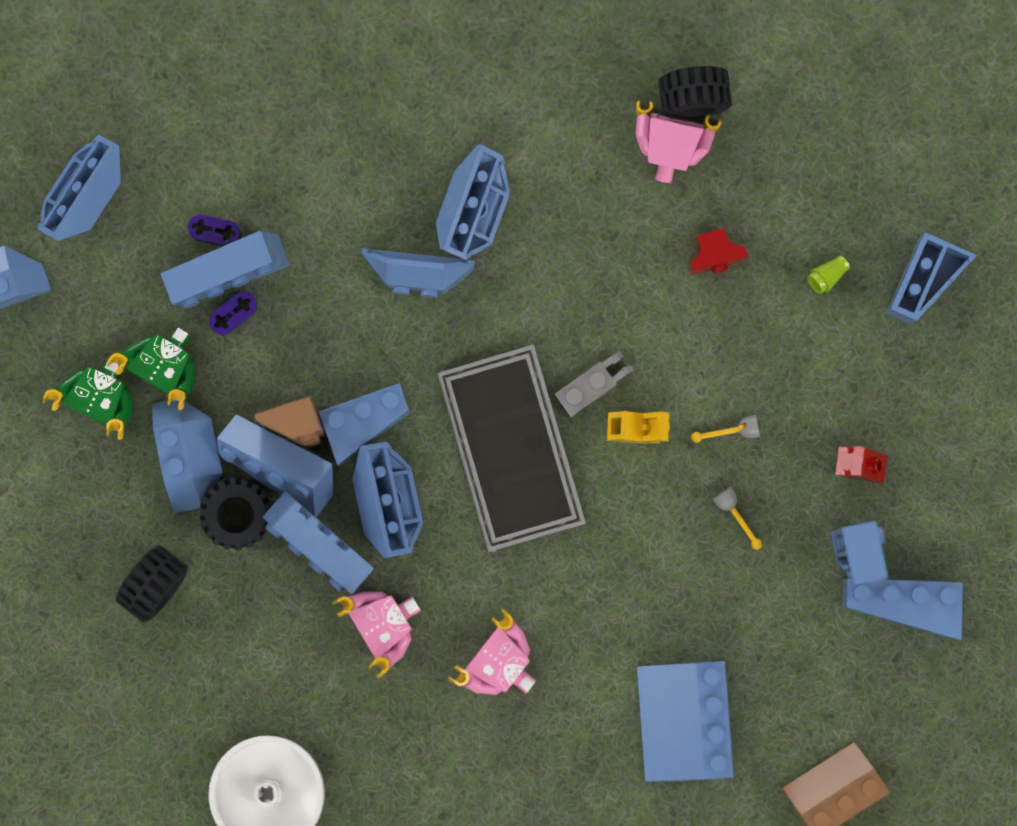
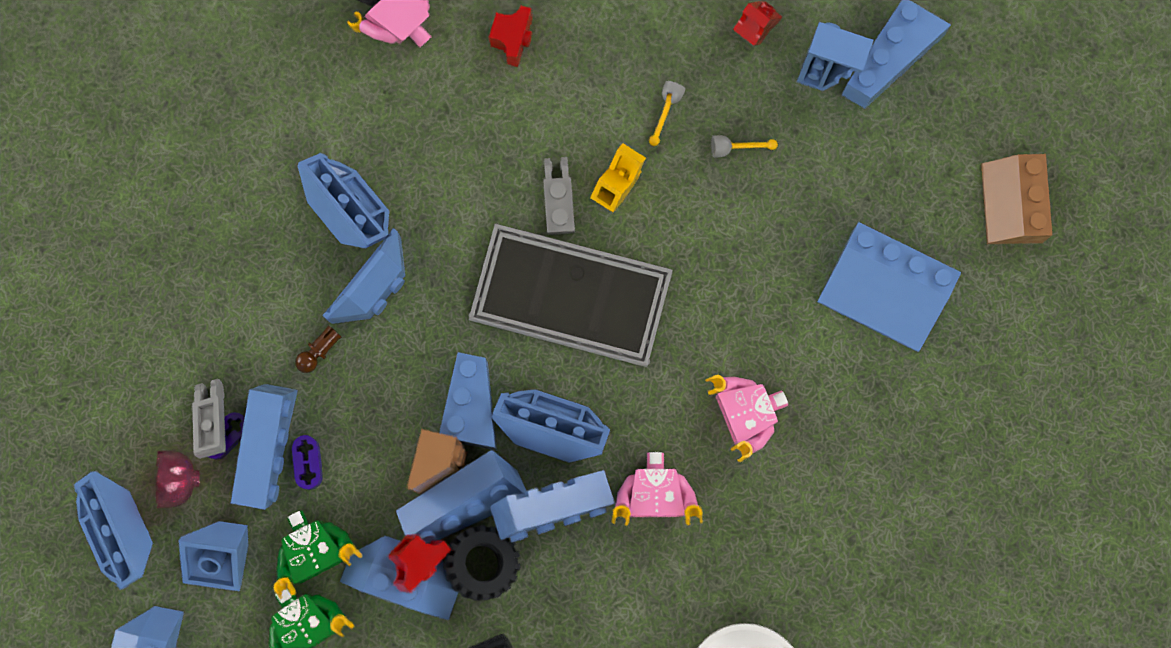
camera: 60 degrees left, 5 degrees down
(111, 287) = (215, 556): none -> medium blue slope
(152, 213) = (174, 479): none -> clear pink cylinder
(202, 458) = (416, 561): none -> red brick
(218, 209) = (208, 420): none -> light grey hinge
(318, 258) = (307, 360): none -> reddish brown pin

